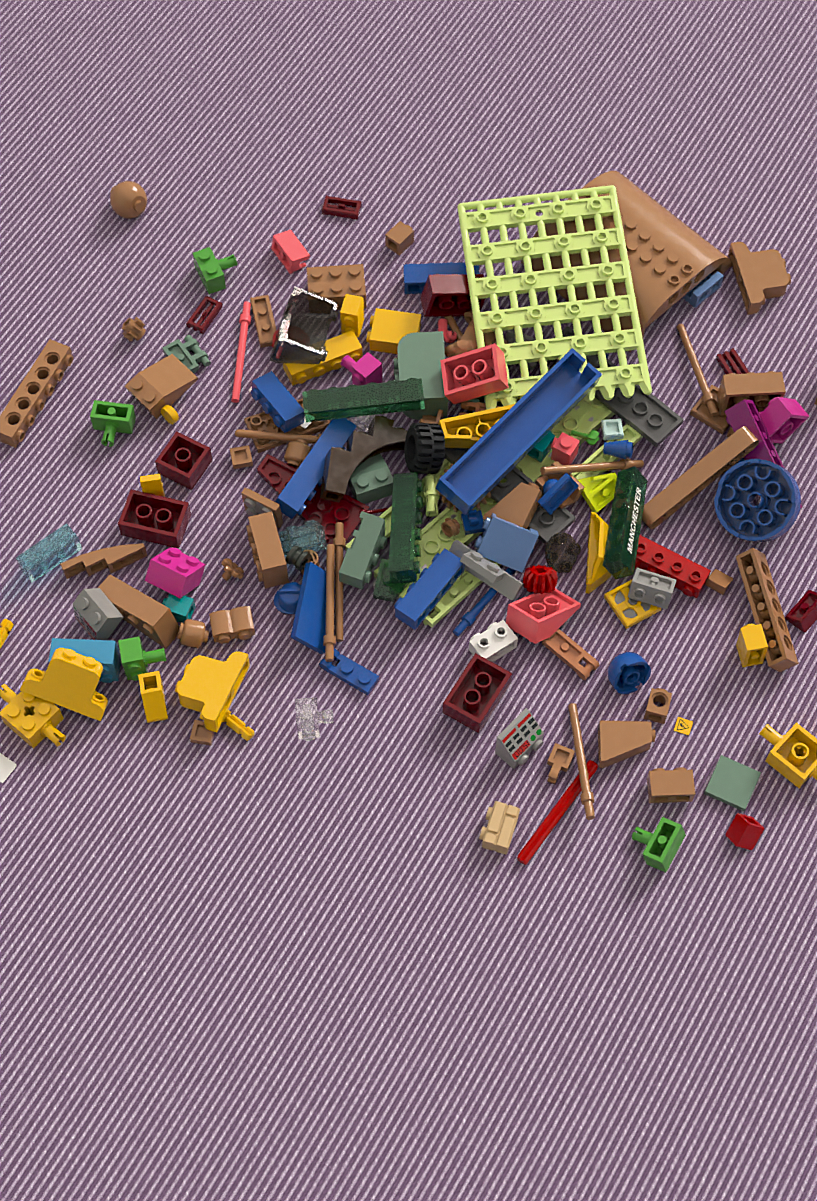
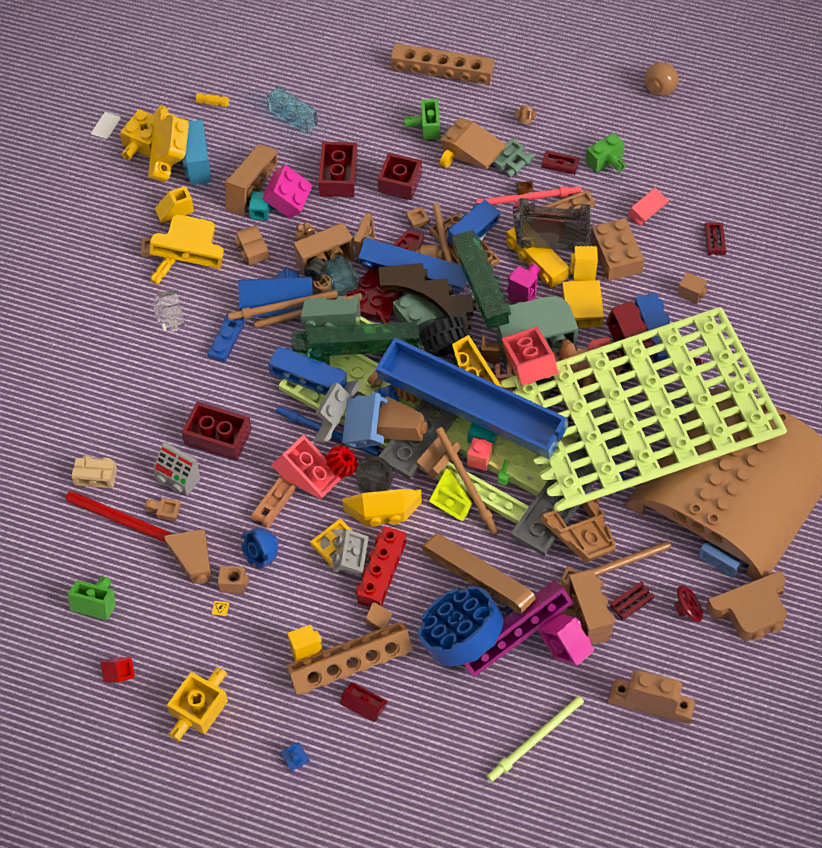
camera: 80 degrees right, 5 degrees down
(96, 613) = (236, 148): light grey slope -> none
(112, 558) = (295, 150): medium nougat slope -> none
(136, 659) = (203, 184): bright green brick -> none
(152, 484) = (363, 157): yellow slope -> none
(192, 633) = (238, 219): medium nougat head -> none
(229, 353) = (524, 187): none -> reddish brown tile
(493, 642) = (270, 436): white brick -> none
(557, 492) = (423, 449): blue tile -> none
(587, 796) = (128, 530): medium nougat bar -> none
(612, 429) = (518, 494): light aqua tile -> none
(620, 449) = (494, 502): blue cone -> none
(625, 523) = (413, 517): clear green brick -> none
(670, 386) = (587, 538): none -> medium nougat wing
(670, 785) = (151, 599): medium nougat brick -> none
(732, 783) = (166, 655): sand green tile -> none
(749, 324) = (687, 604): none -> dark red piece

